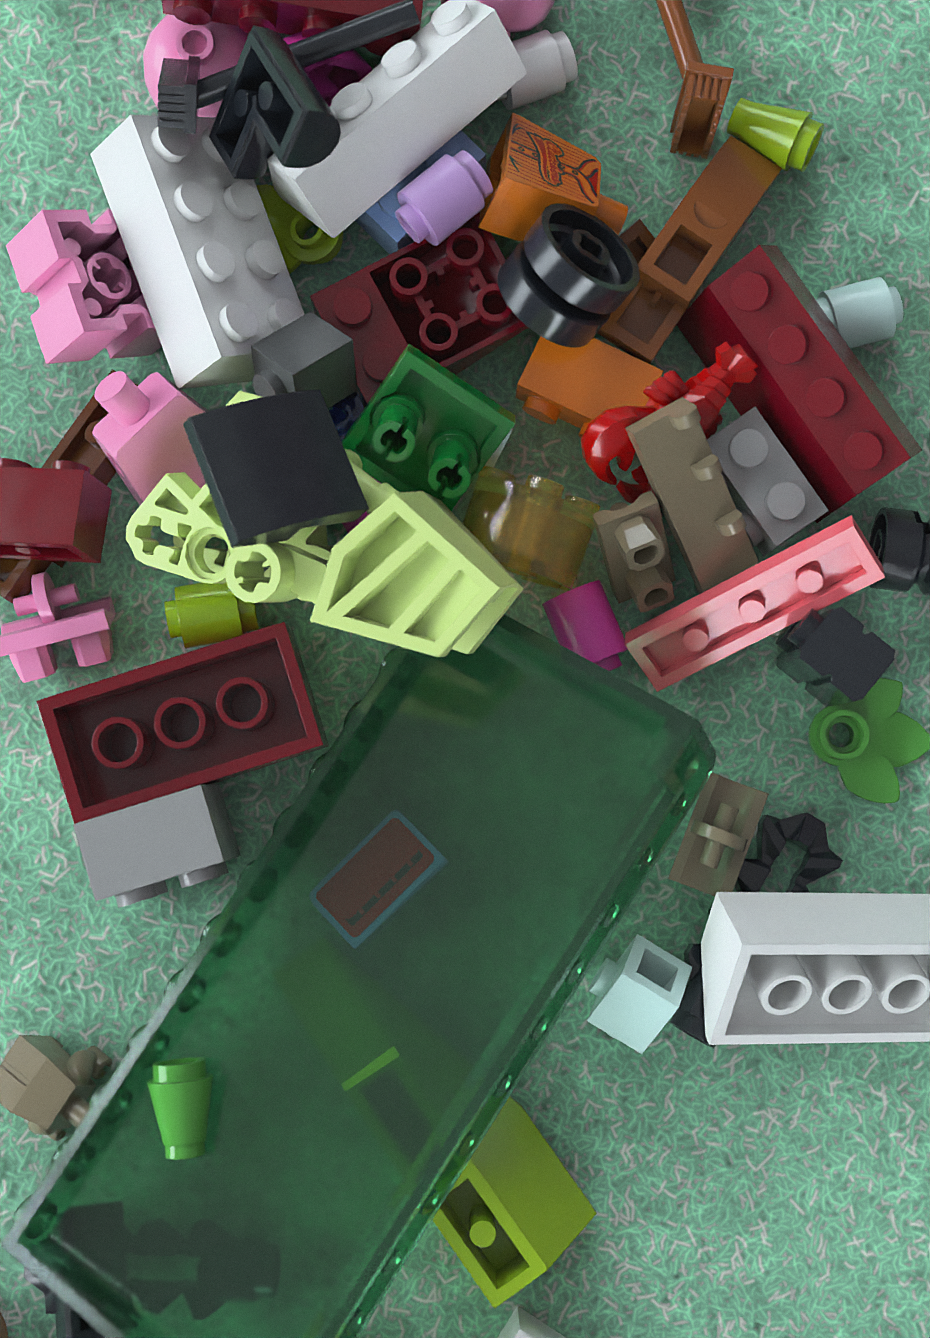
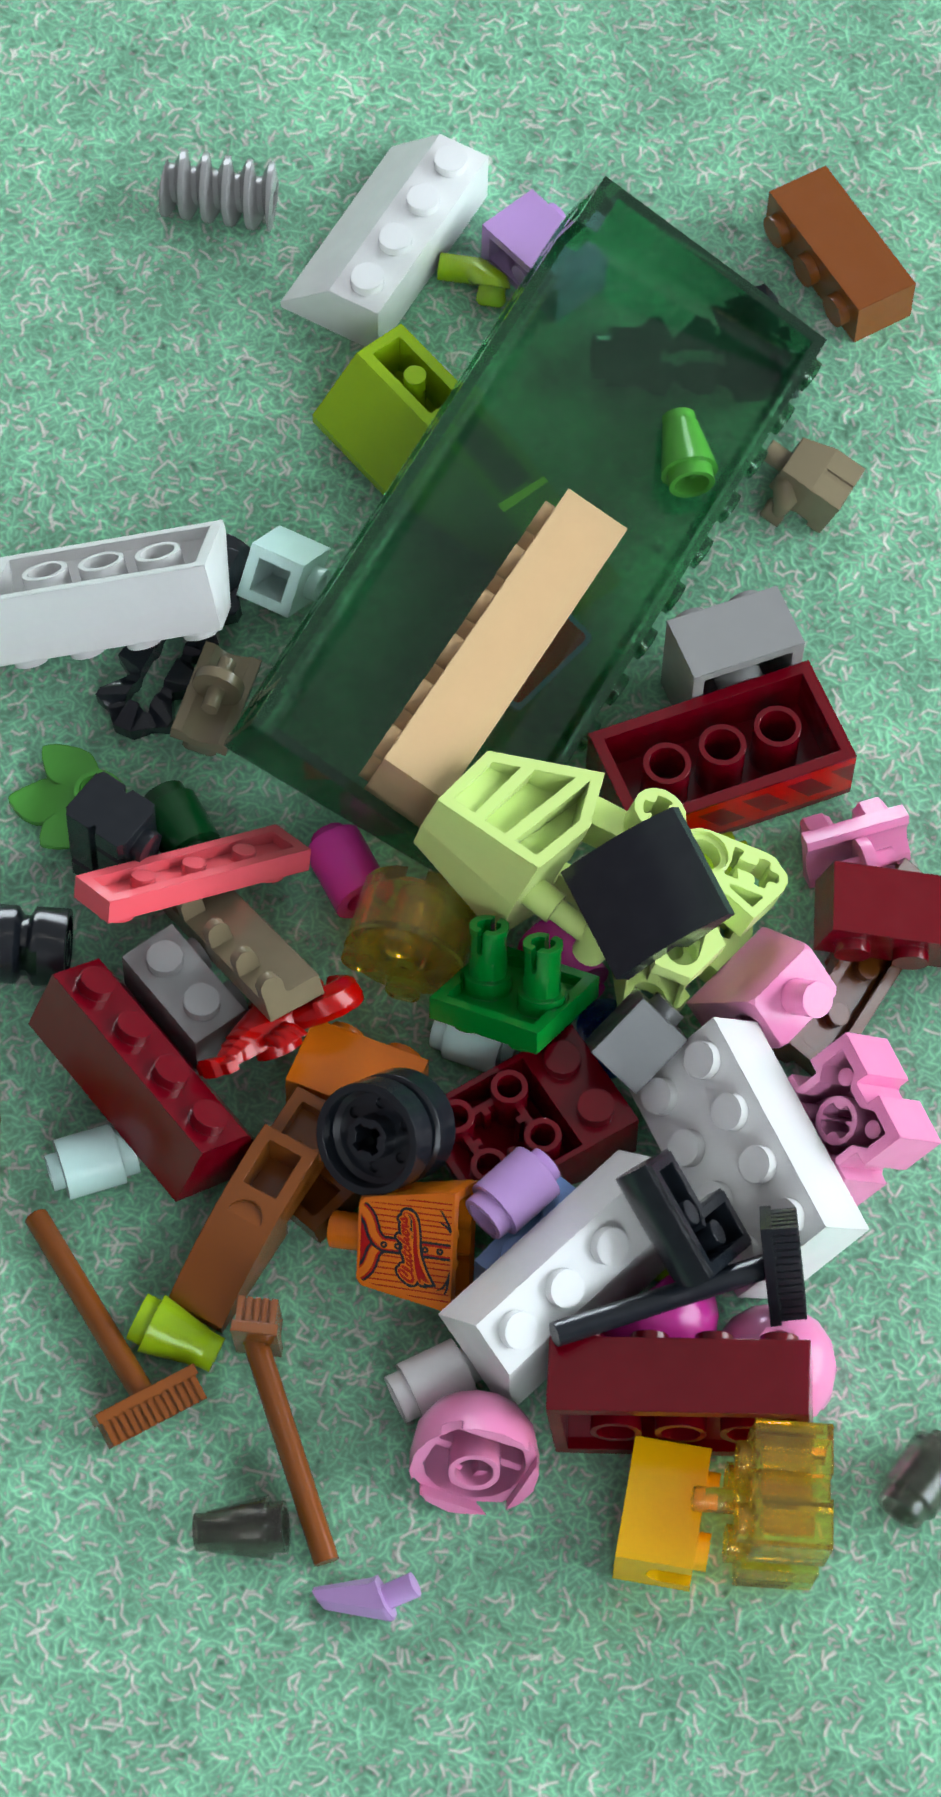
camera: 175 degrees right, 25 degrees down
(420, 819) = (491, 655): none -> tan brick
(636, 552) = (307, 925): dark tan hips -> none
(758, 690) = (180, 816): none -> dark green brick
(806, 66) = (147, 1402): none -> dark orange piece

